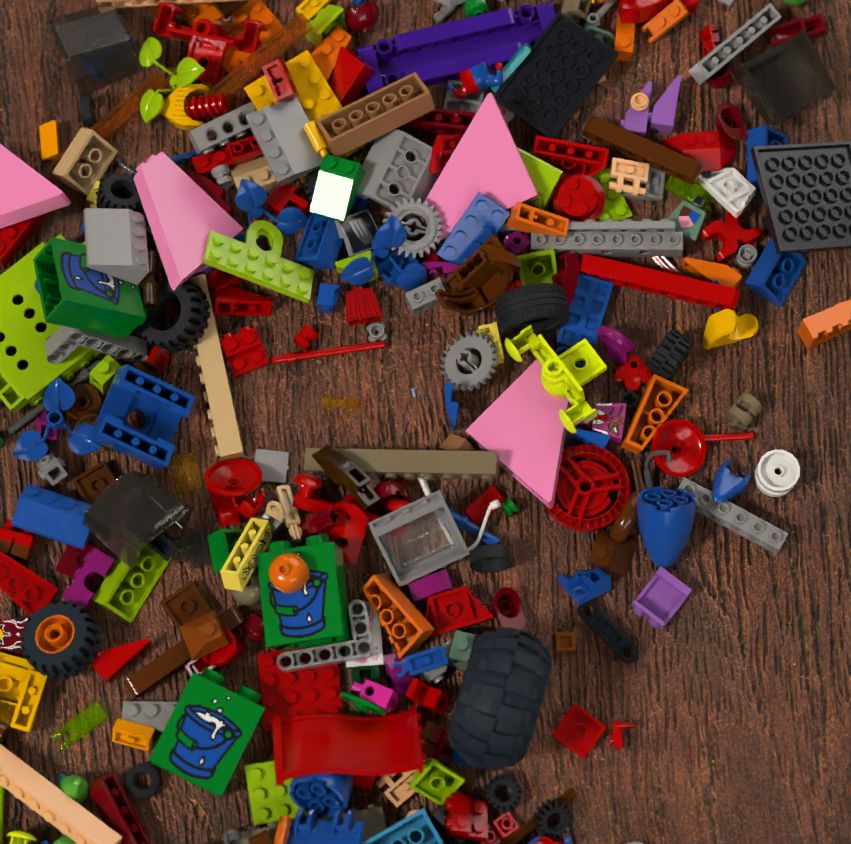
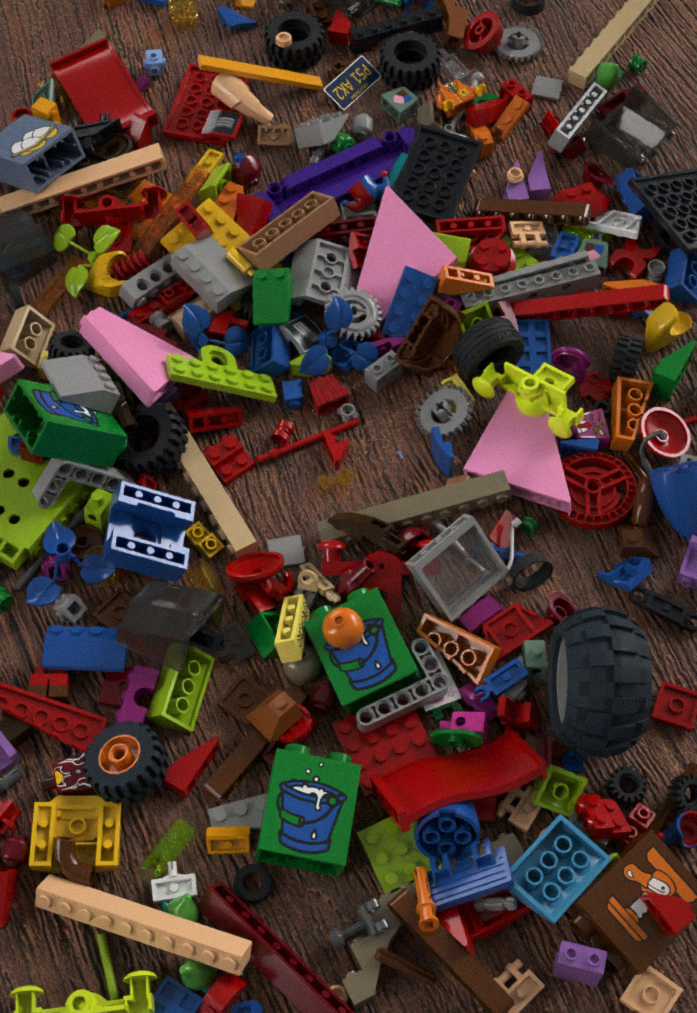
camera: 20 degrees left, 15 degrees down
(74, 762) = (173, 885): none -> white plate
(196, 432) = (203, 540): none -> yellow slope
(351, 373) = (335, 450): none -> red slope
(661, 203) = (565, 245): none -> blue bracket
(712, 381) = (670, 371): none -> green slope

